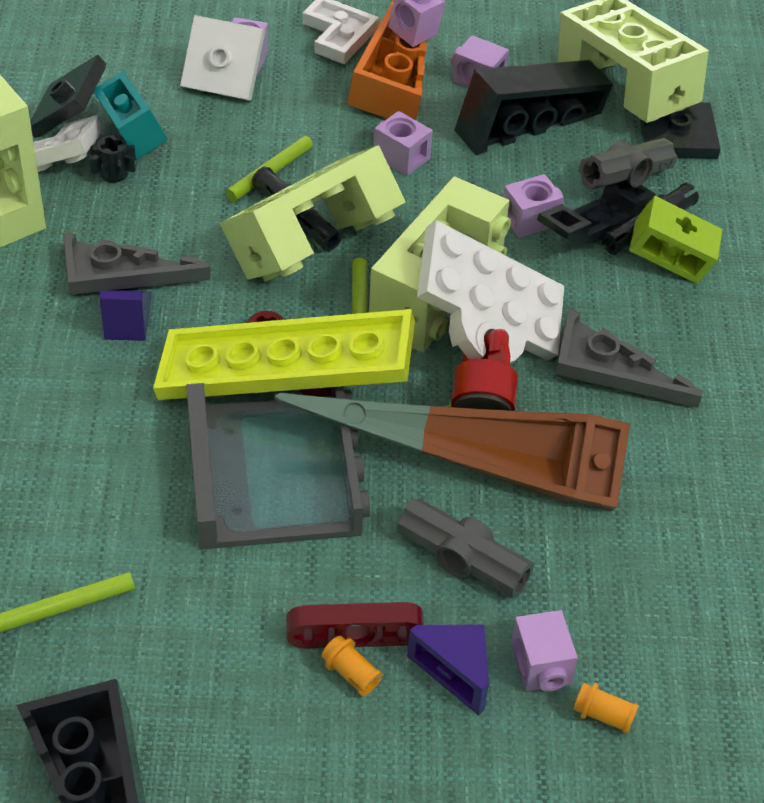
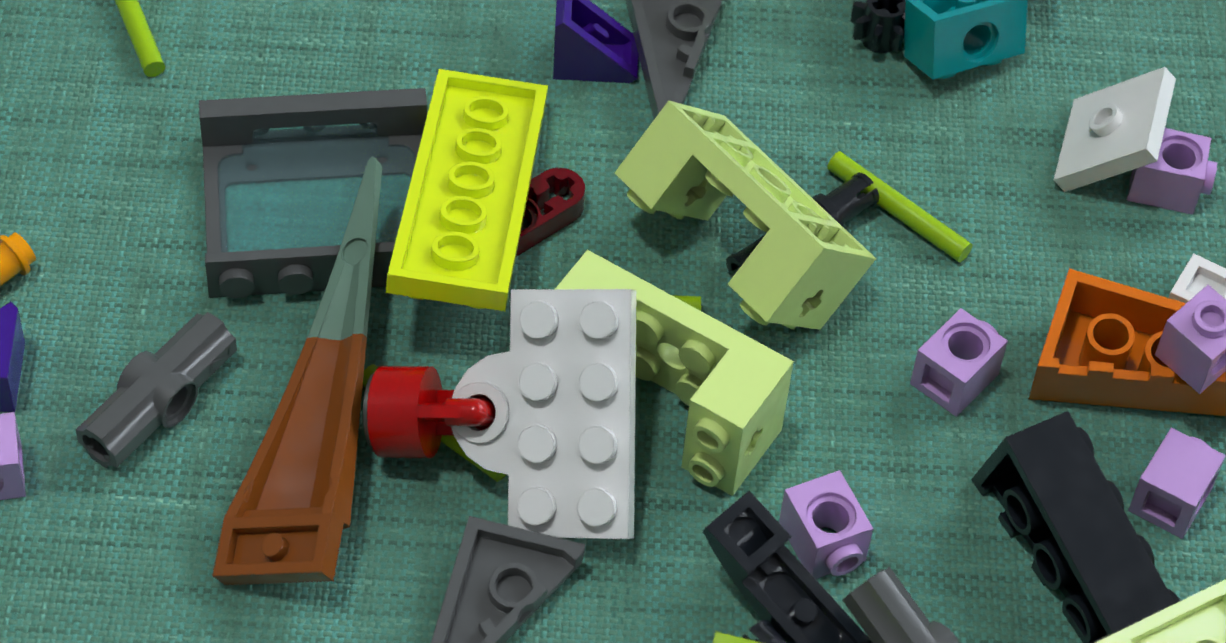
camera: 90 degrees right, 5 degrees up
(378, 624) = (50, 270): dark red beam -> none

